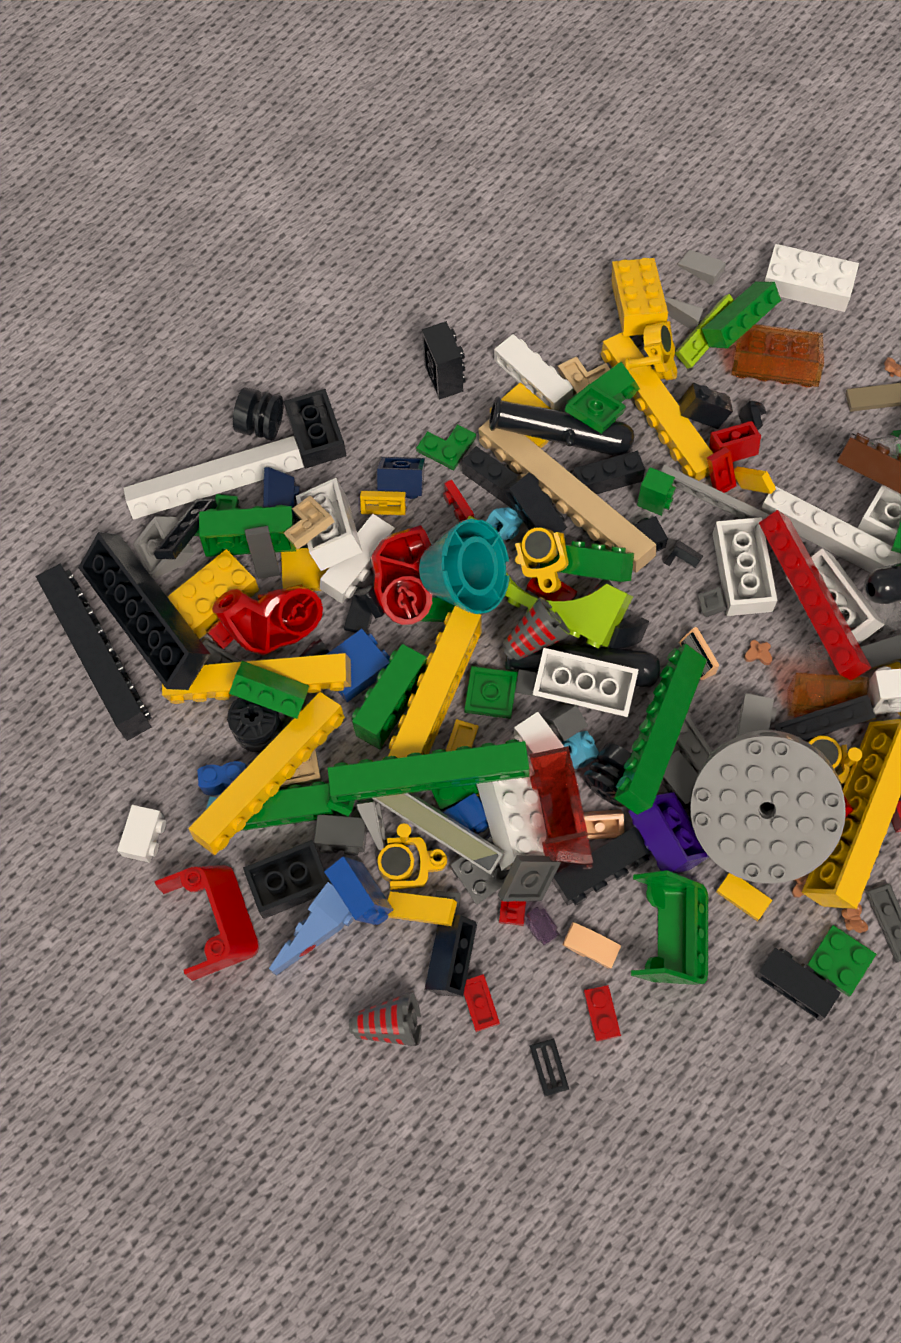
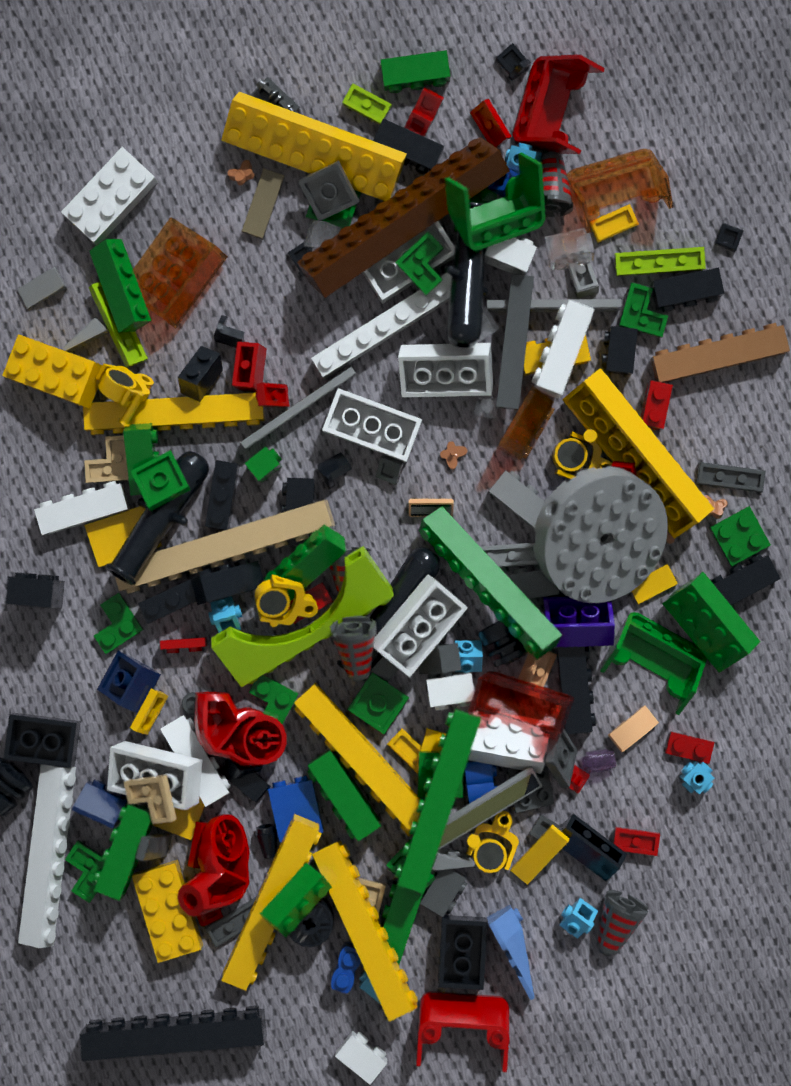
camera: 70 degrees left, 20 degrees up
(144, 611) = (161, 977): black brick -> none
(151, 539) = (95, 929): light grey slope -> none
(183, 530) = (96, 906): black tile -> none
(359, 891) = (504, 899): blue brick -> none
(374, 979) = (578, 918): none -> medium azure brick
(467, 567) = (270, 678): teal cone -> none
(555, 1089) = (691, 807): black tile -> none
(569, 1039) = (689, 773): none -> medium azure brick
(628, 634) = (387, 562): black slope -> none
(741, 966) = (711, 622): none -> green brick
(754, 480) = (295, 371): yellow tile -> none
(814, 596) = (437, 390): red brick -> none
(830, 719) = (546, 439): black plate -> none

